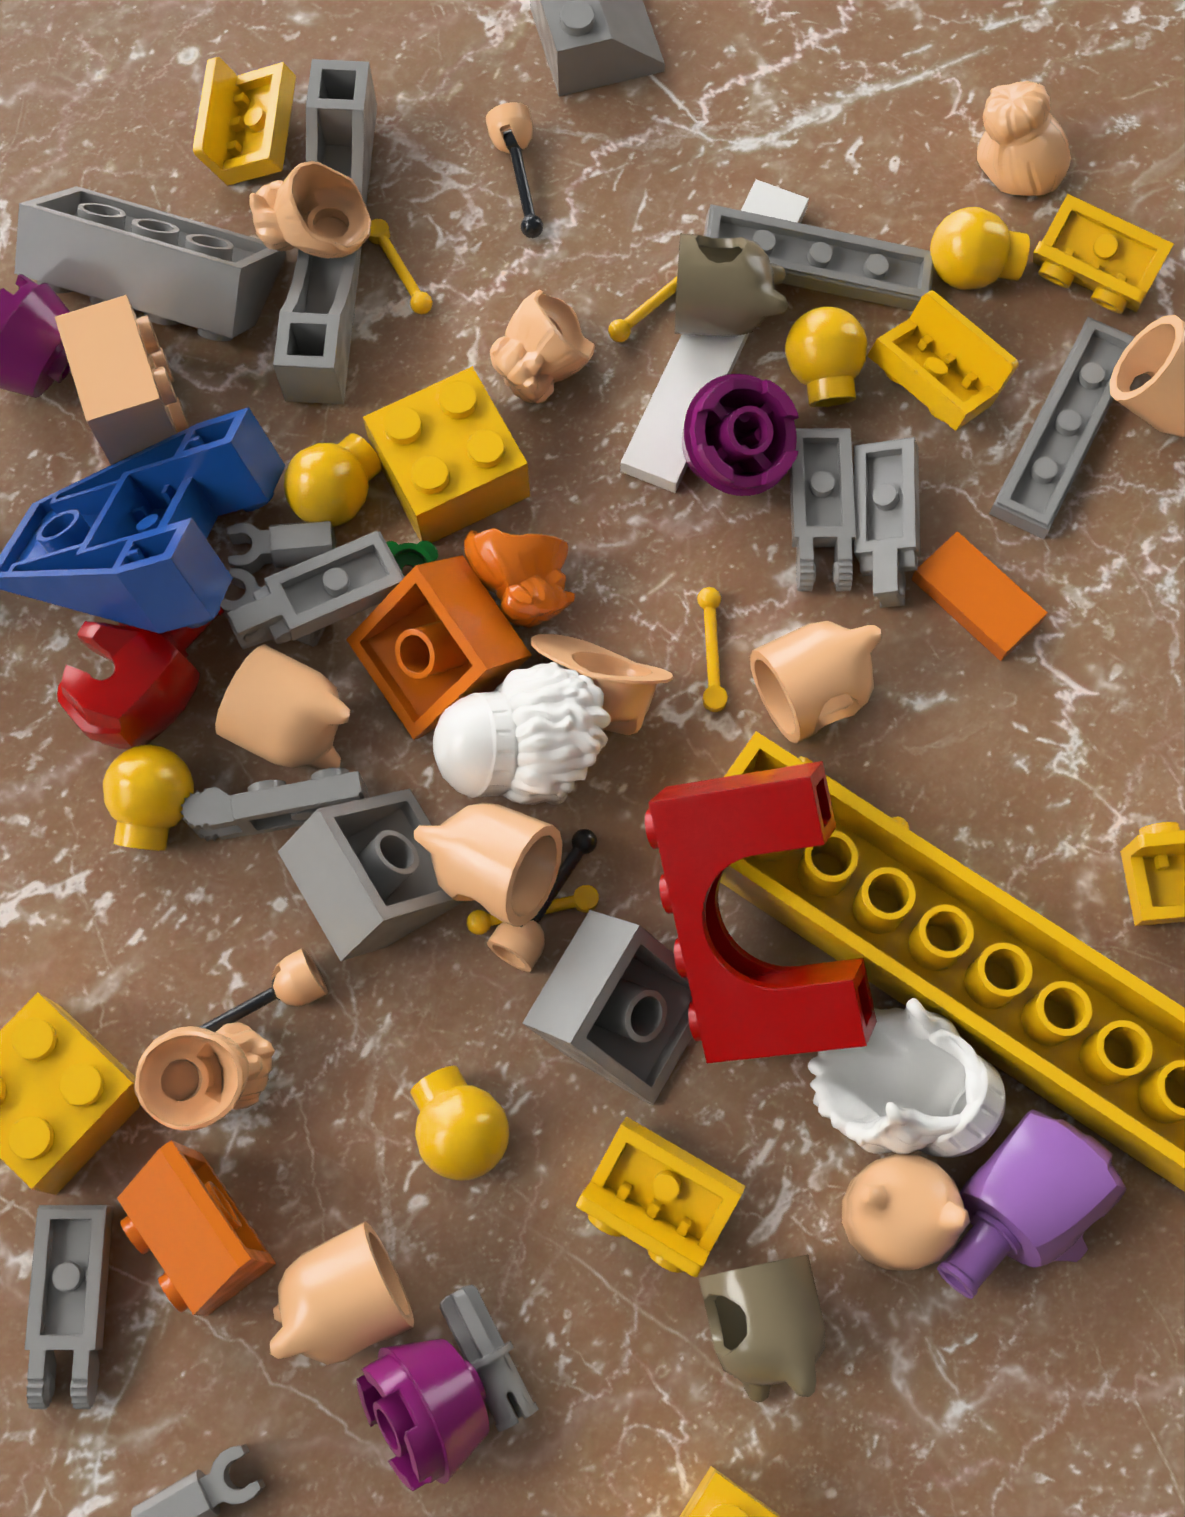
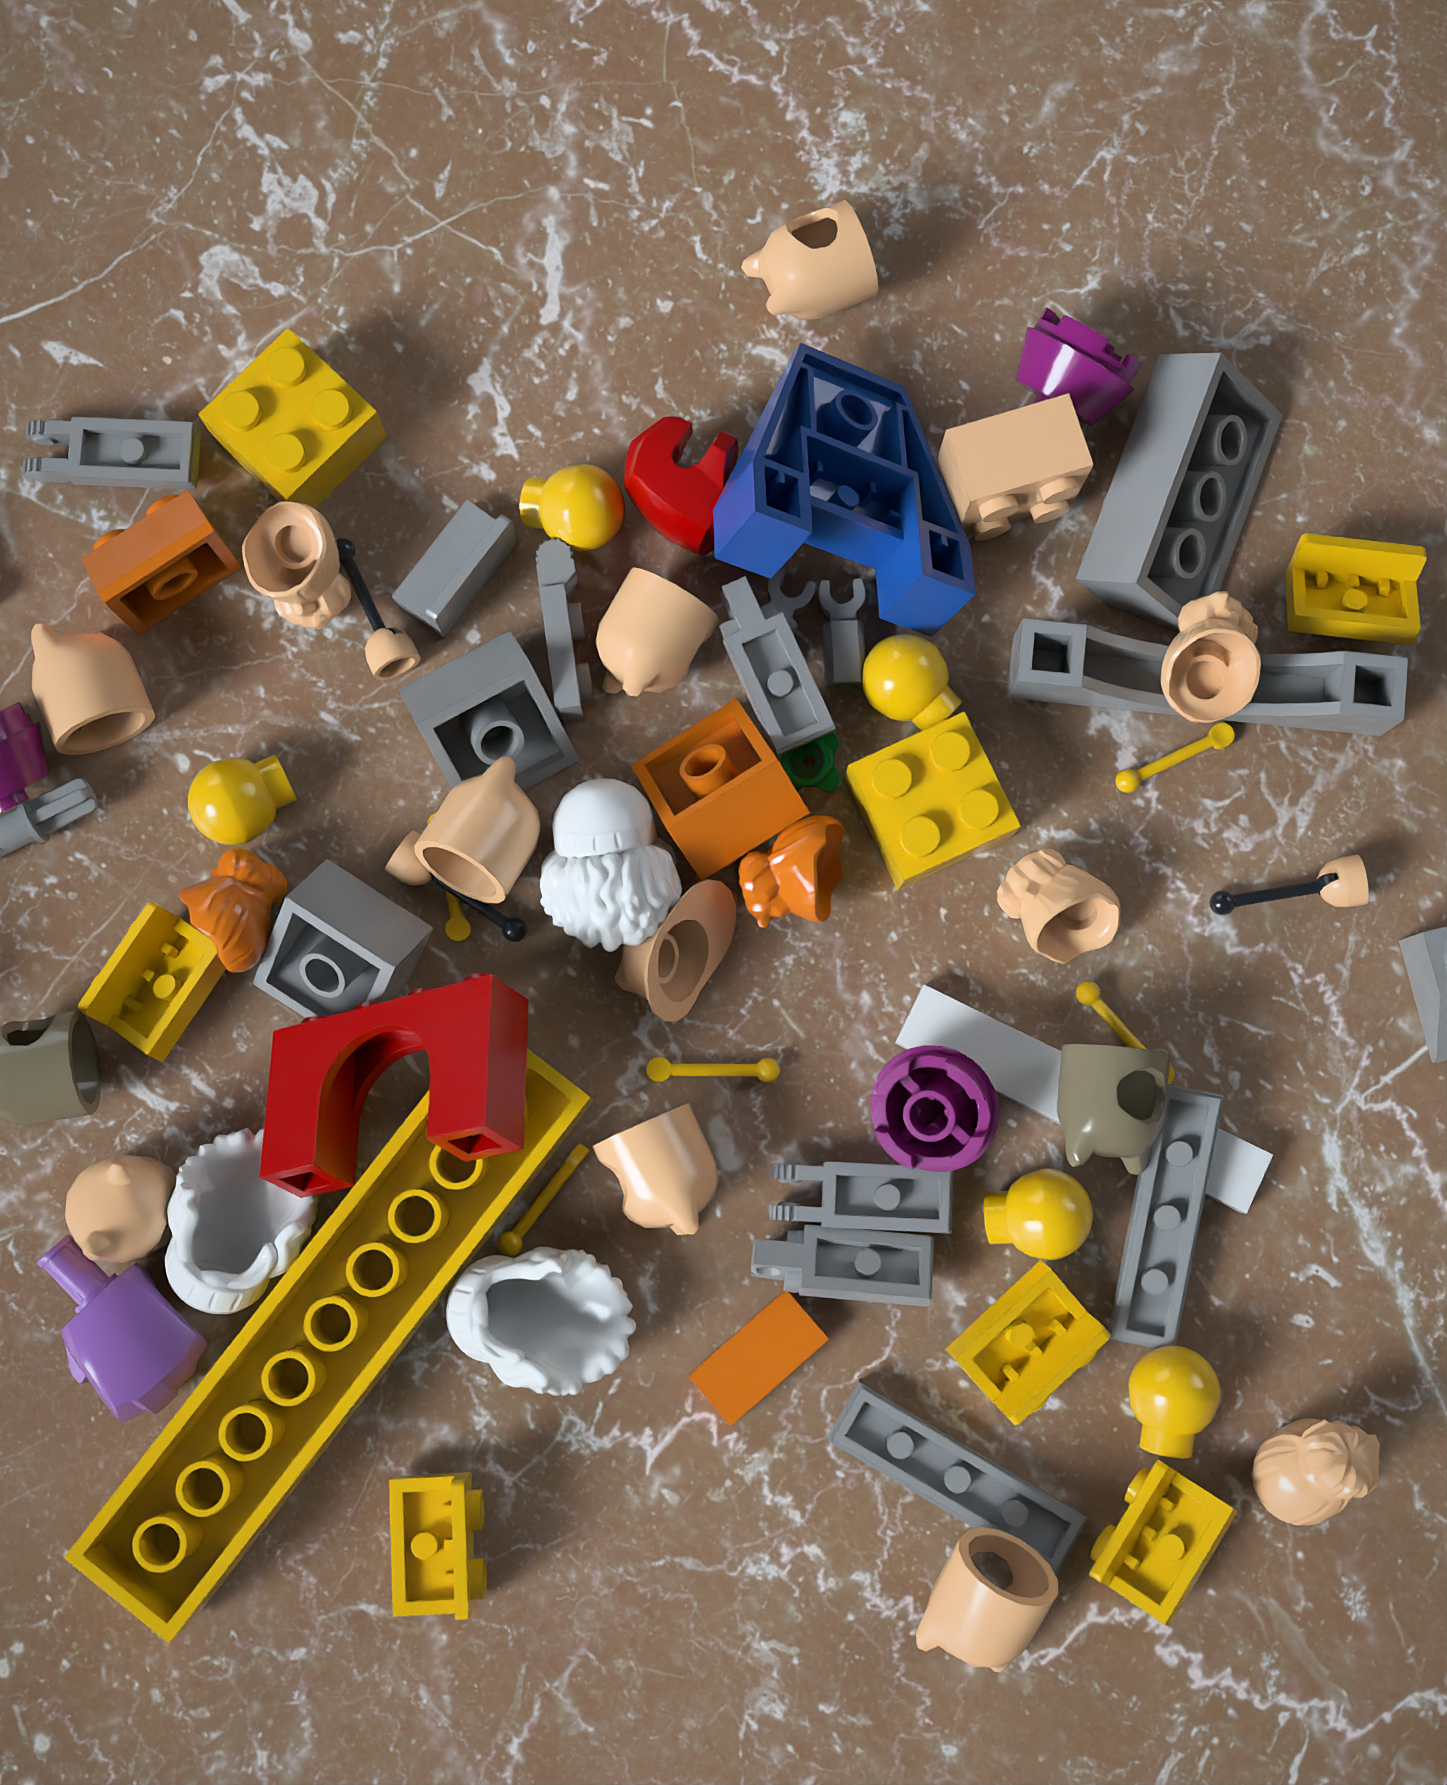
camera: 90 degrees right, 10 degrees up
(208, 919) = (456, 567): none -> light grey panel
(574, 1116) = (236, 907): none -> orange hair
(971, 778) = (542, 1318): none -> white hair

